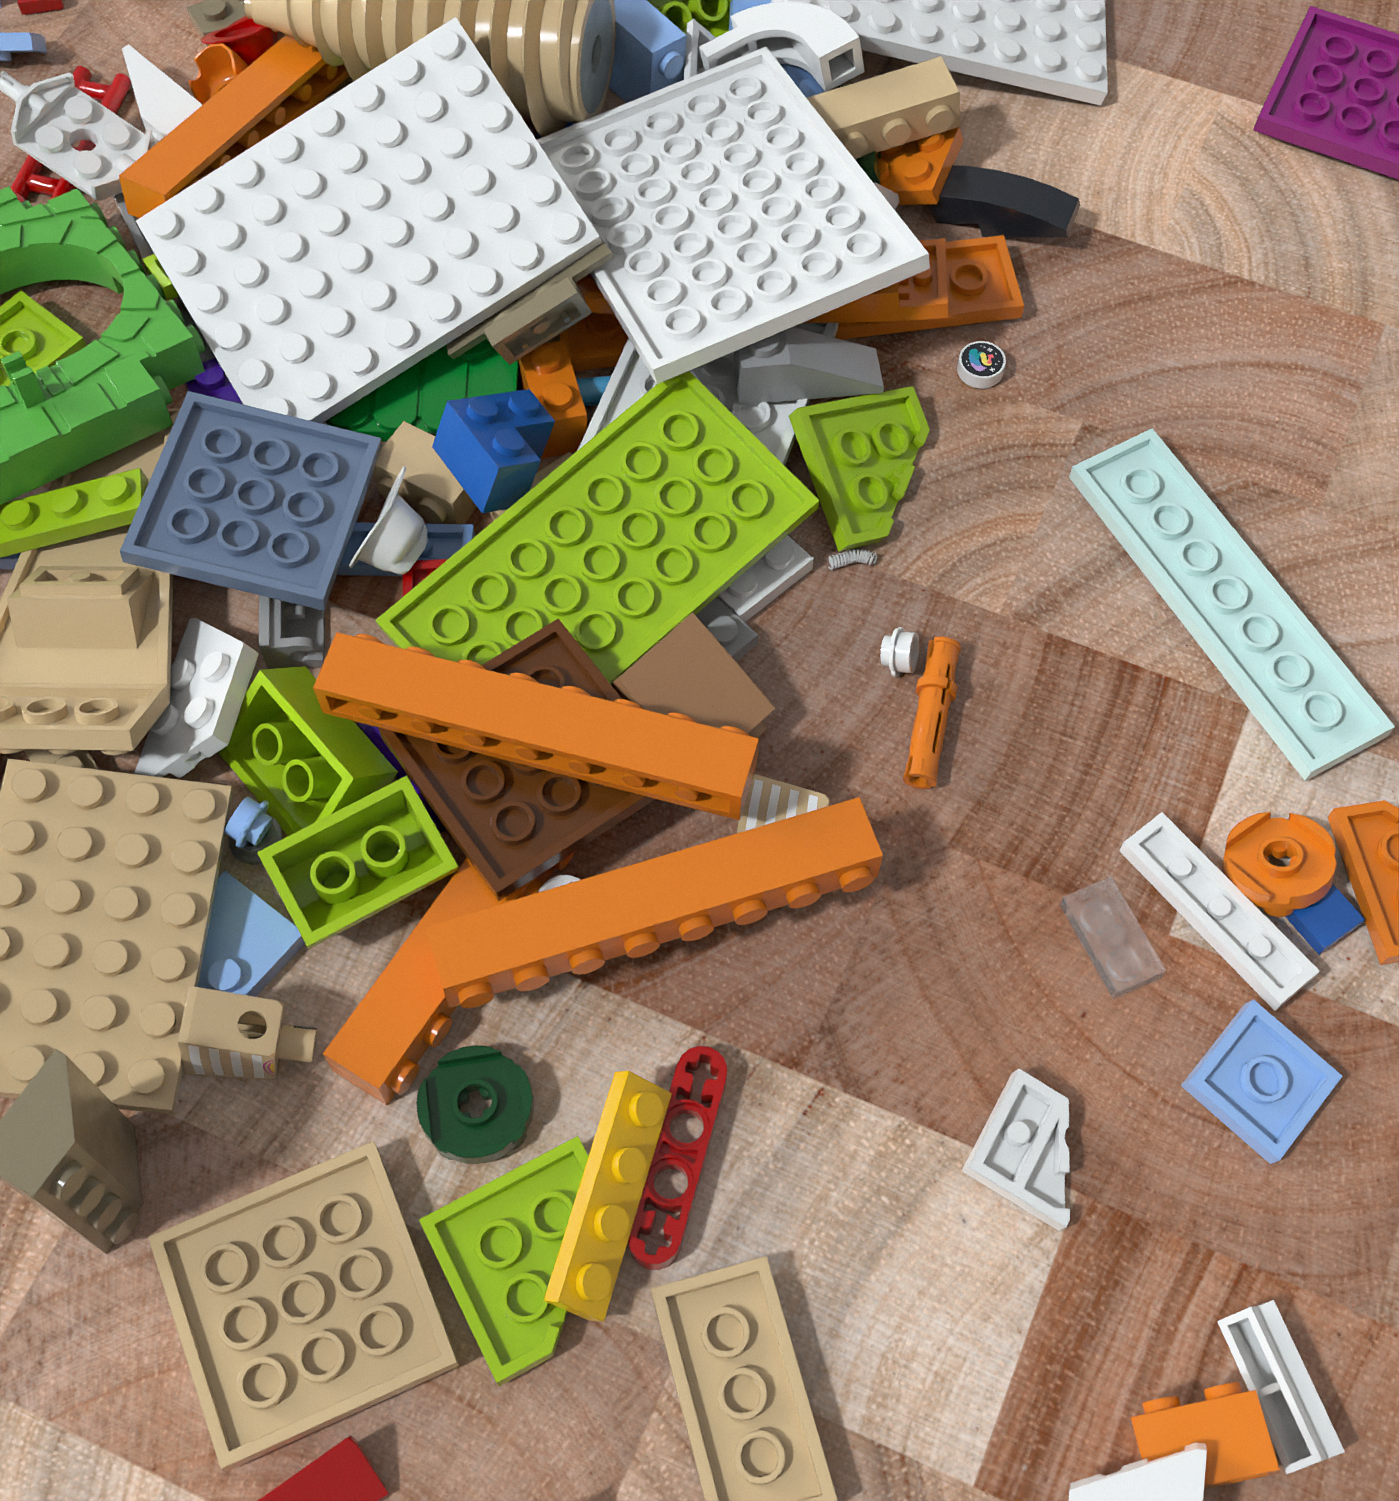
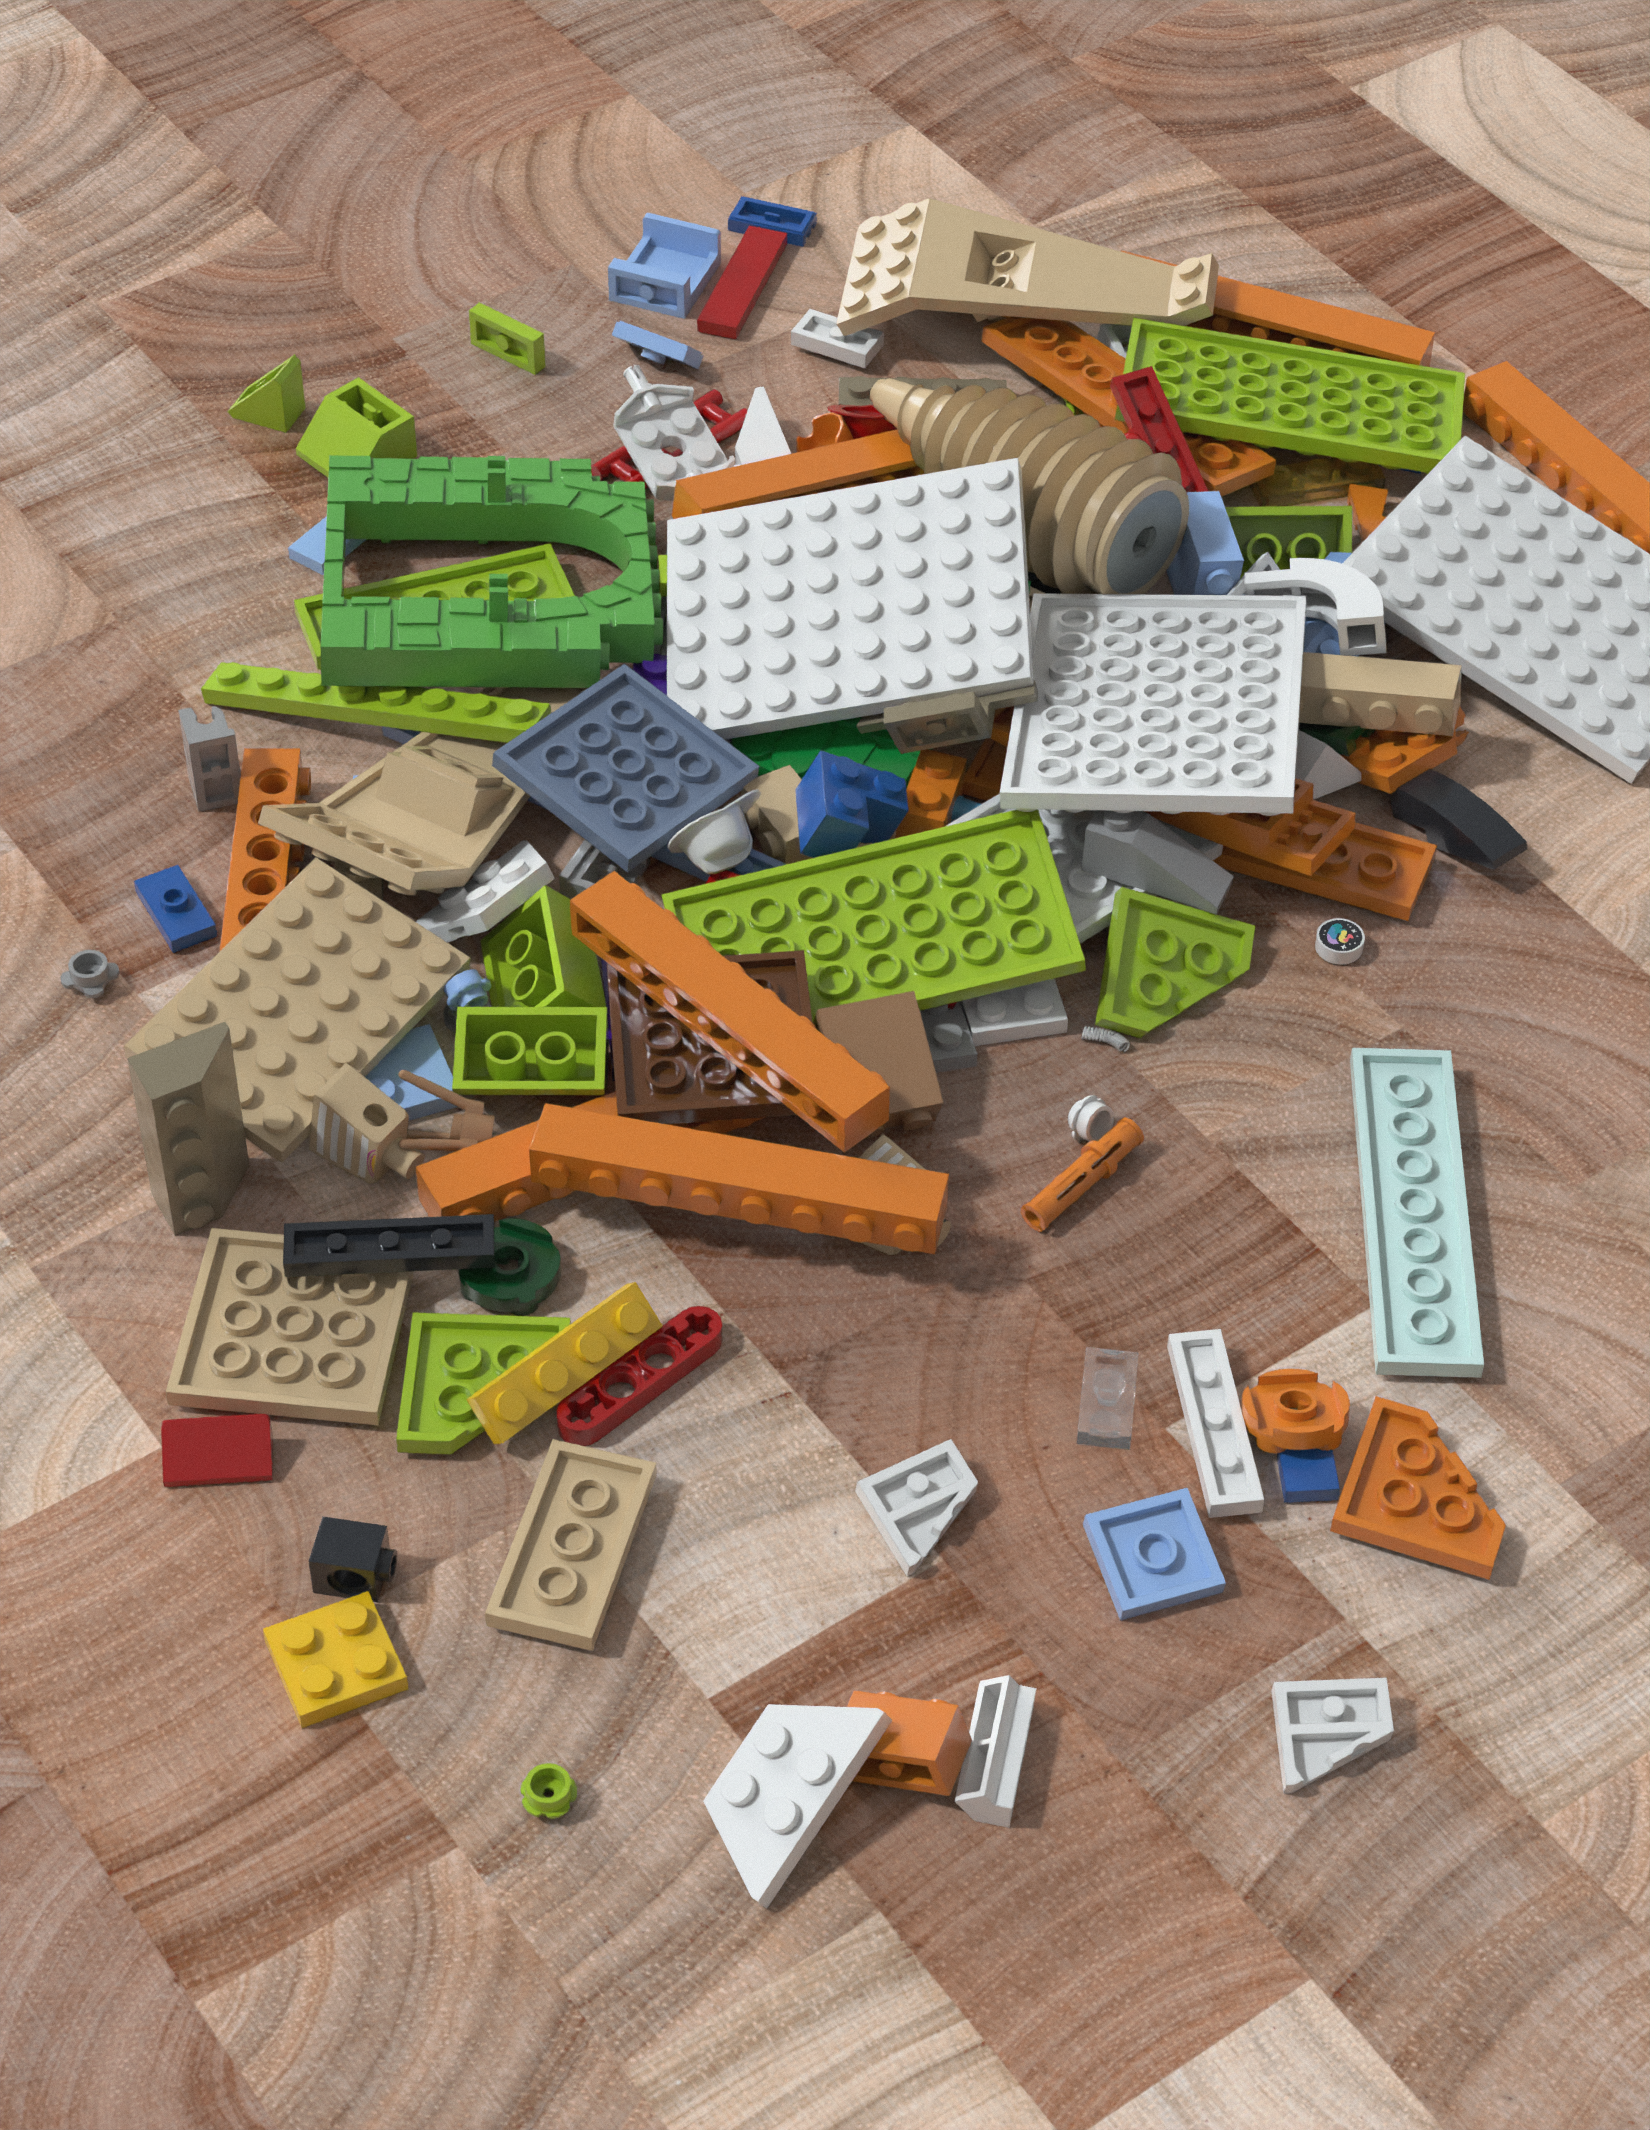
camera: 30 degrees right, 15 degrees down
(344, 976) = (465, 1129): none -> medium nougat plant
(351, 1164) = (389, 1245): none -> black plate

